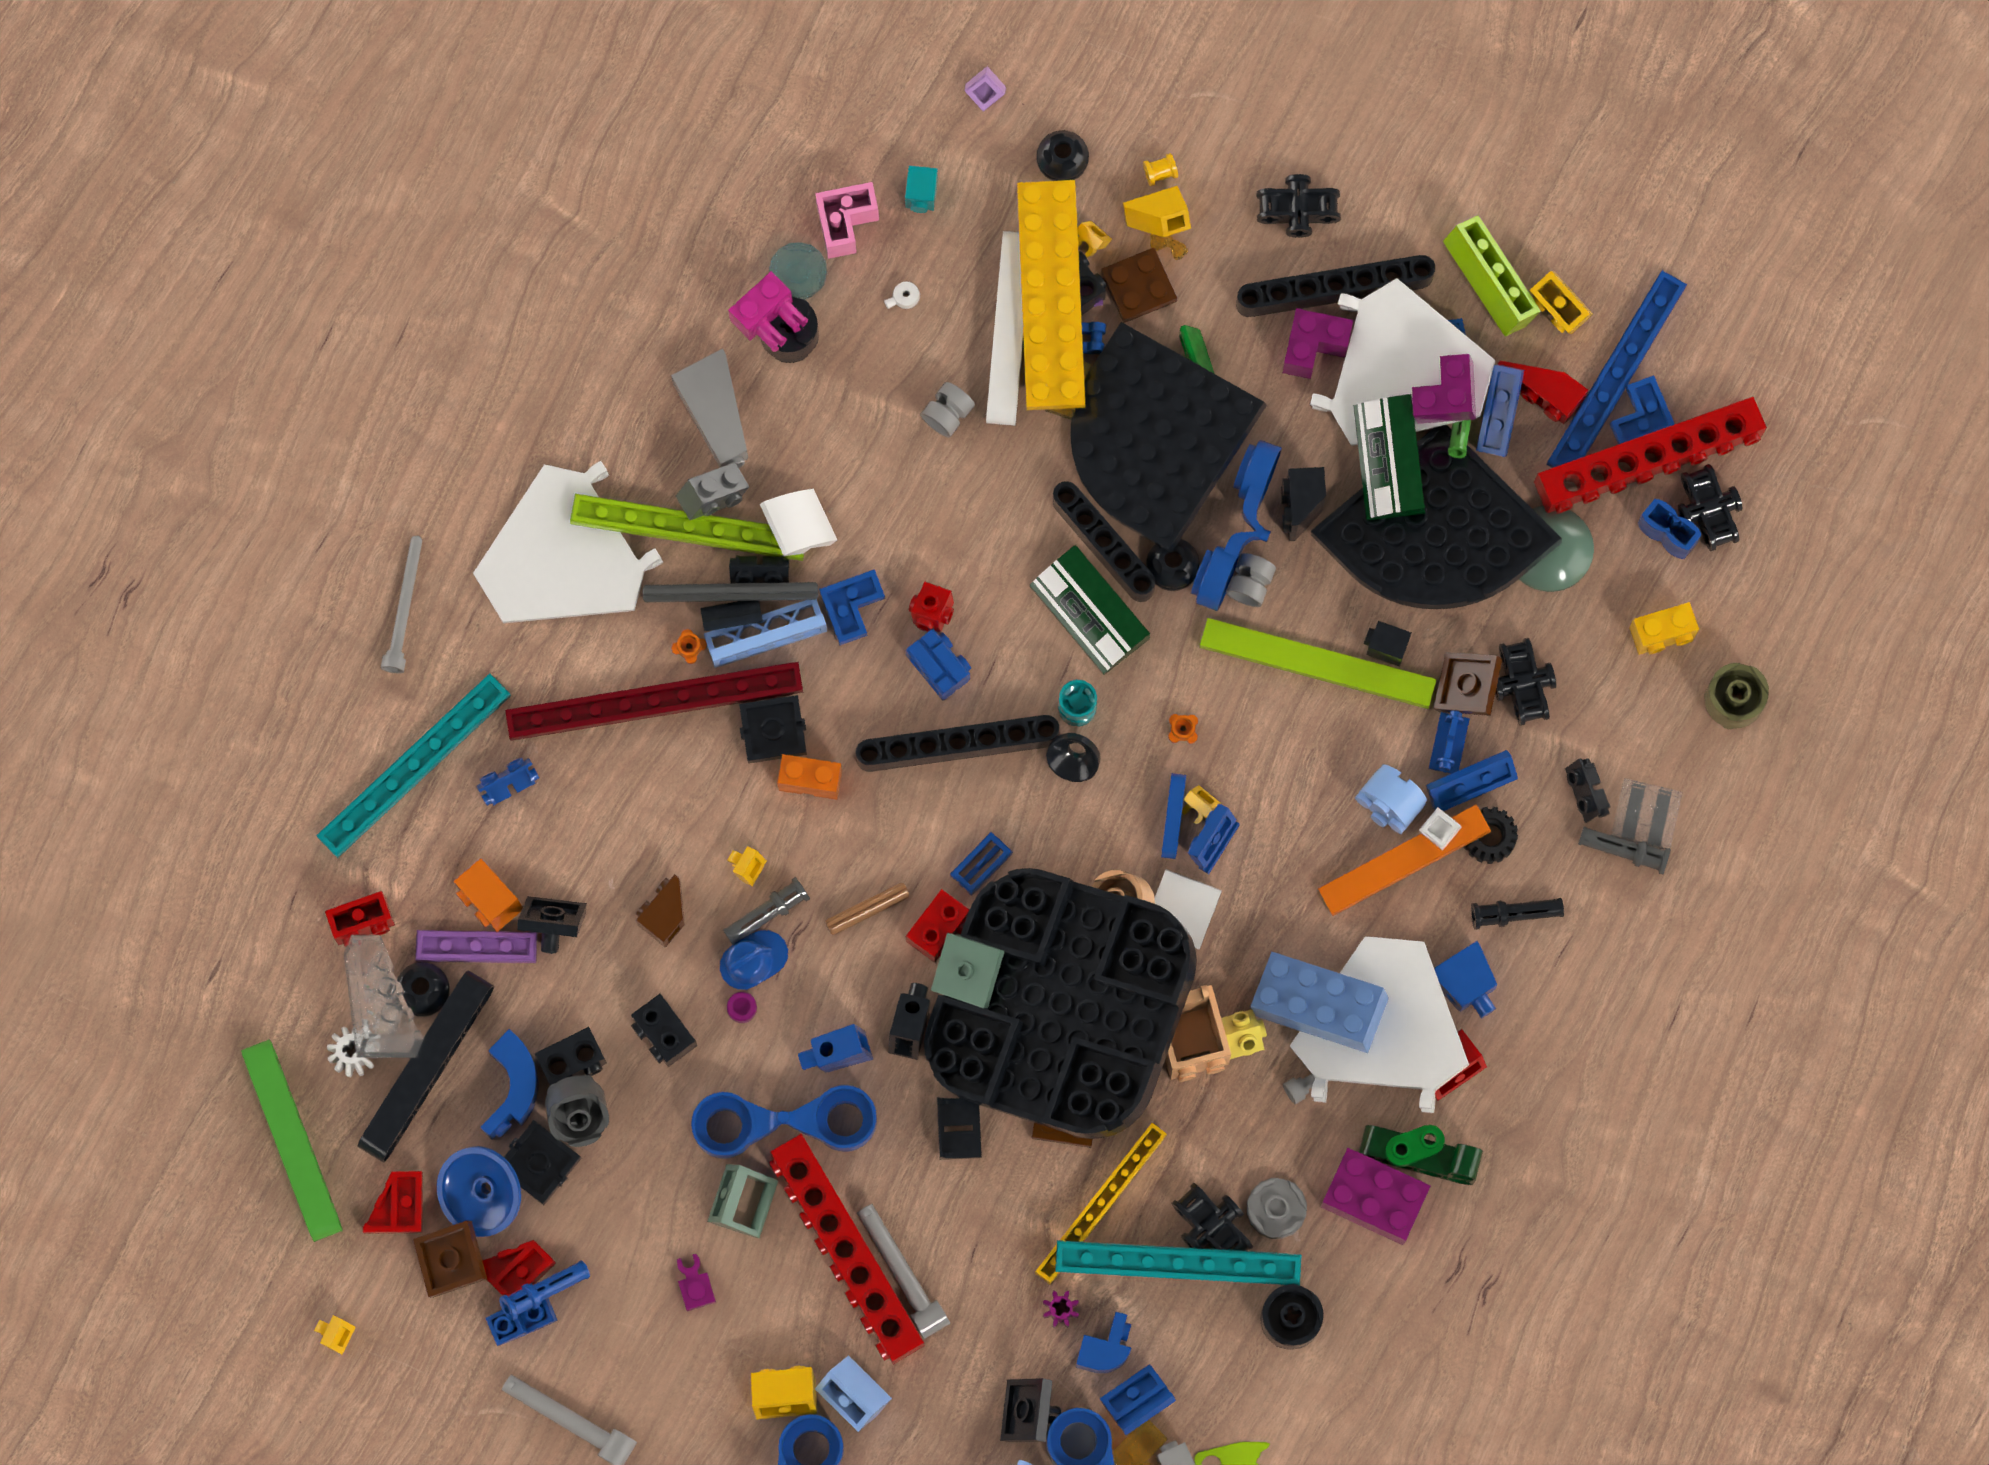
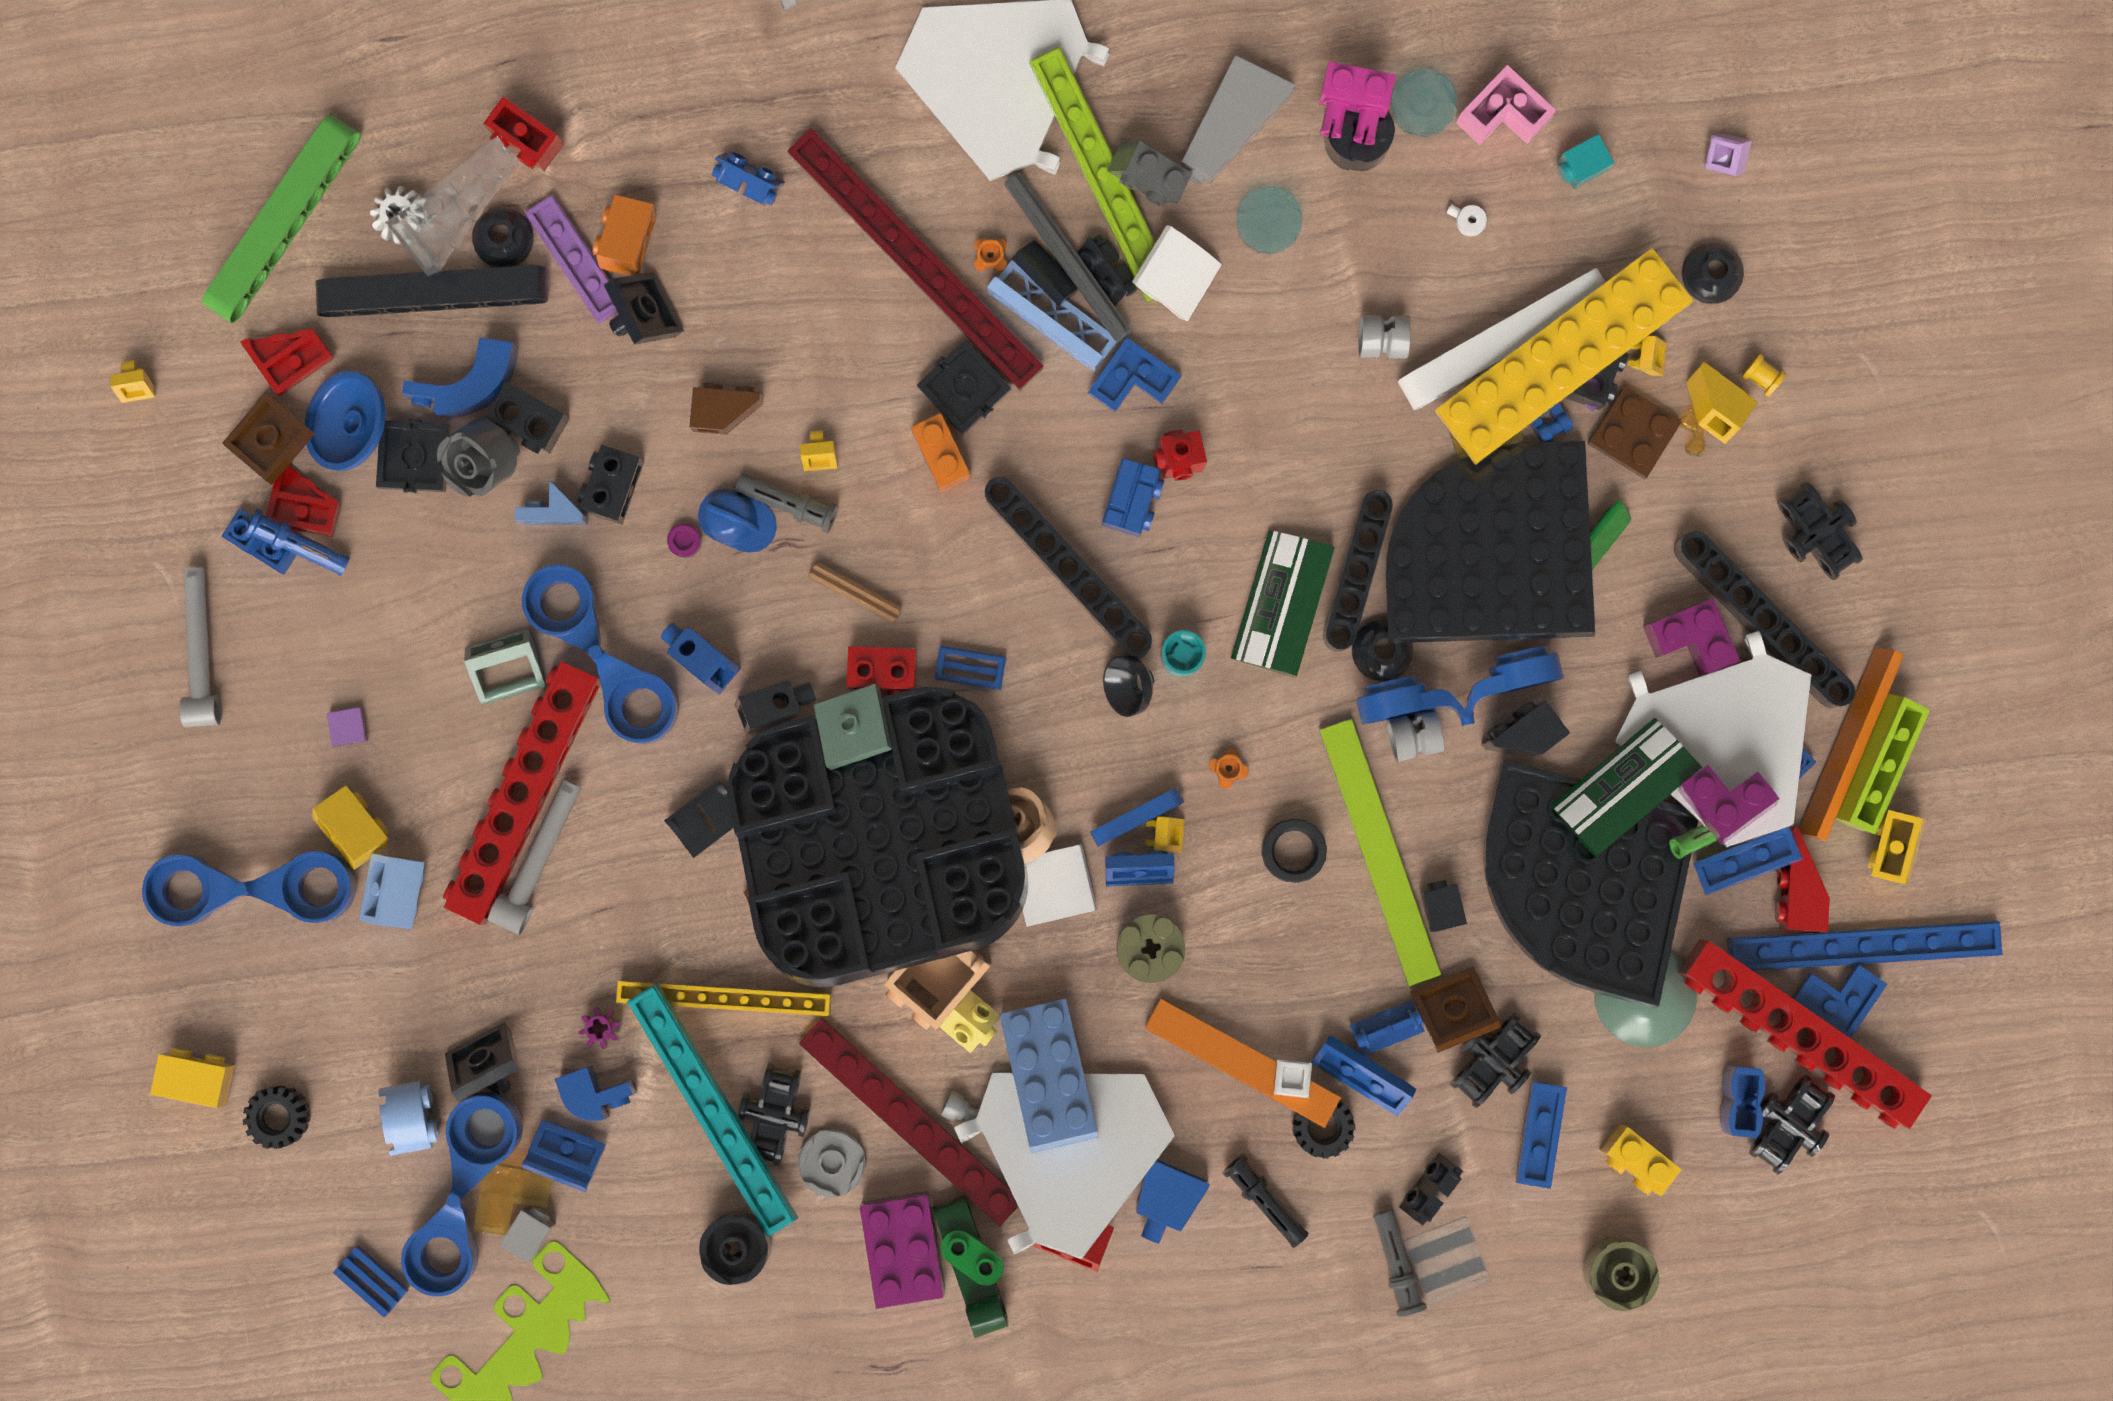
camera: 55 degrees right, 10 degrees up
(413, 765) = (704, 82): teal tile -> none
(657, 1080) = (560, 511): none -> medium blue slope
(695, 1288) = (396, 679): magenta plate -> none
(705, 1349) = (347, 727): none -> medium lavender tile
(804, 434) = (1269, 220): none -> clear light blue tile
(1281, 700) = (1314, 835): none -> black tyre
(1285, 1130) = (910, 1121): none -> dark red plate
(1292, 865) = (1167, 958): none -> olive brick
(1391, 799) = (1291, 1012): light blue brick -> none
(1465, 285) = (1851, 743): none -> orange tile
(1599, 686) = (1541, 1134): none -> blue plate

